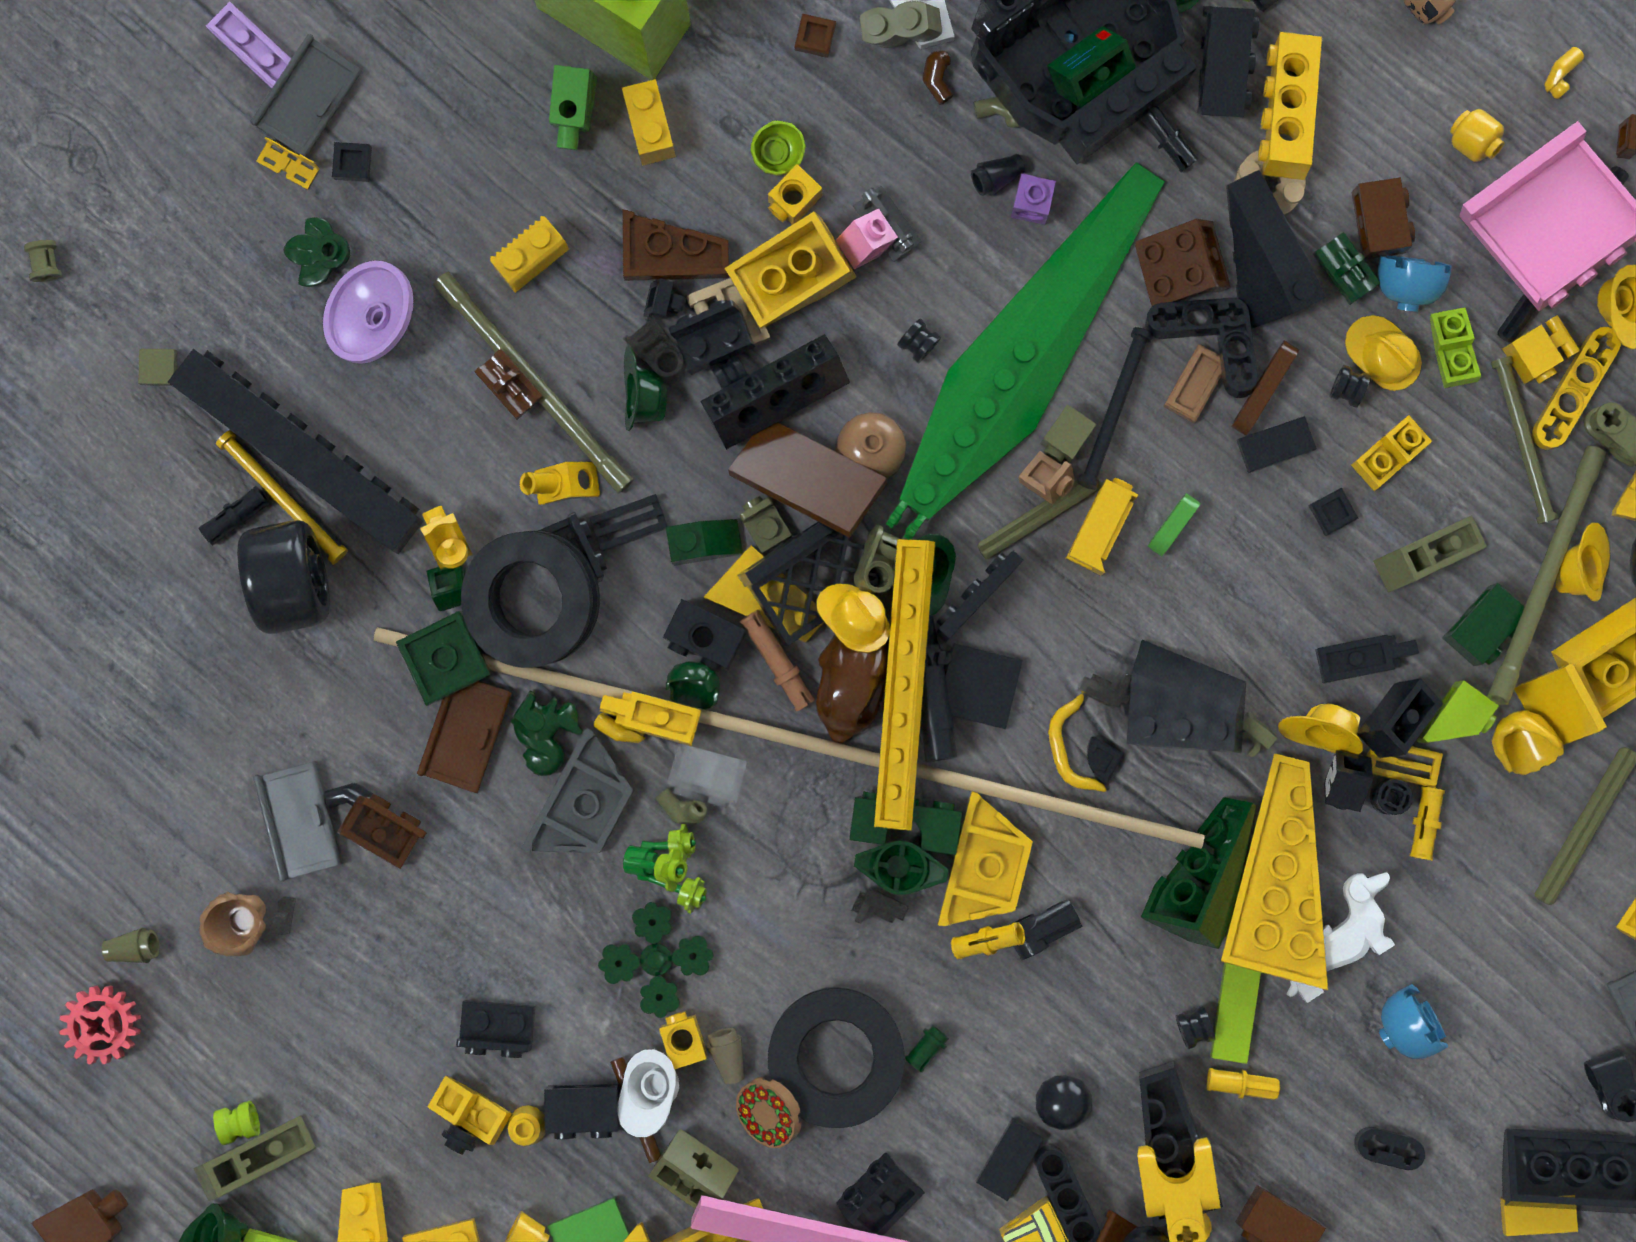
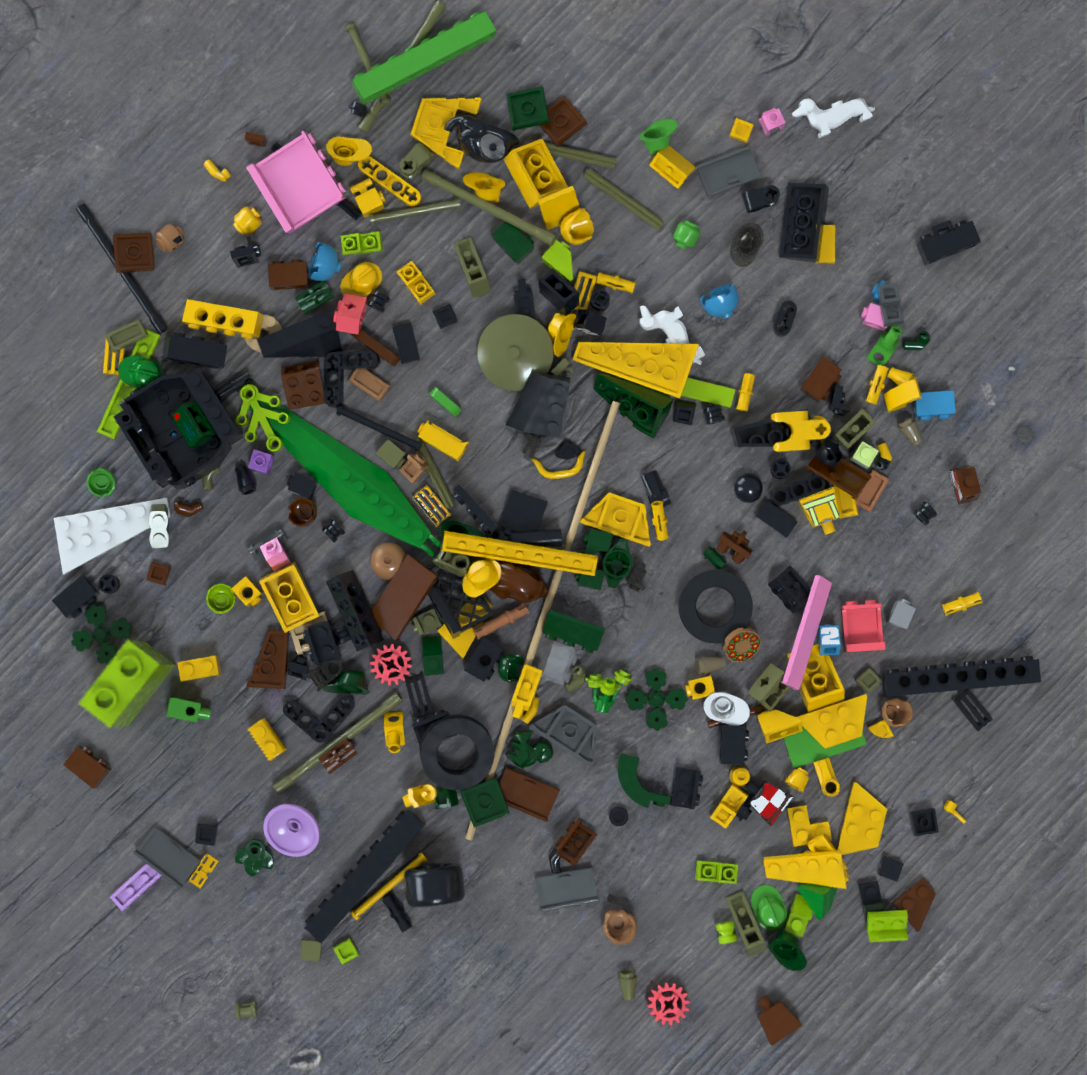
camera: 85 degrees left, 0 degrees up
(160, 430) = (346, 951): none -> lime tile
(288, 1198) = (769, 908): none -> bright green piece
(346, 1096) = (716, 872): none -> lime slope
(436, 906) = (618, 816): none -> black tile
(483, 1183) = (767, 800): none -> torso
(512, 916) = (628, 779): none -> dark green arch
(565, 340) = (316, 724): none -> black beam
(624, 1191) = (778, 725): none -> yellow slope
(667, 460) = (395, 656): none -> coral gear
(767, 795) = (573, 631): none -> dark green slope
(944, 1099) = (728, 541): none -> reddish brown hips
(948, 281) = (302, 512): none -> reddish brown hair
(979, 516) = (431, 506): none -> tile
(996, 277) = (302, 485): none -> black brick
(1109, 1165) = (780, 466): none -> black wheel
(1118, 189) = (260, 415): none -> lime plant
(1195, 971) = (684, 412): none -> black slope
(1282, 642) = (513, 350): none -> olive dish
(1322, 336) = (350, 313): none -> coral brick
(1413, 136) = (246, 256): none -> black bracket
(1525, 1065) = (746, 244): none -> clear smoke piece
(1532, 950) = (686, 234): none -> bright green head

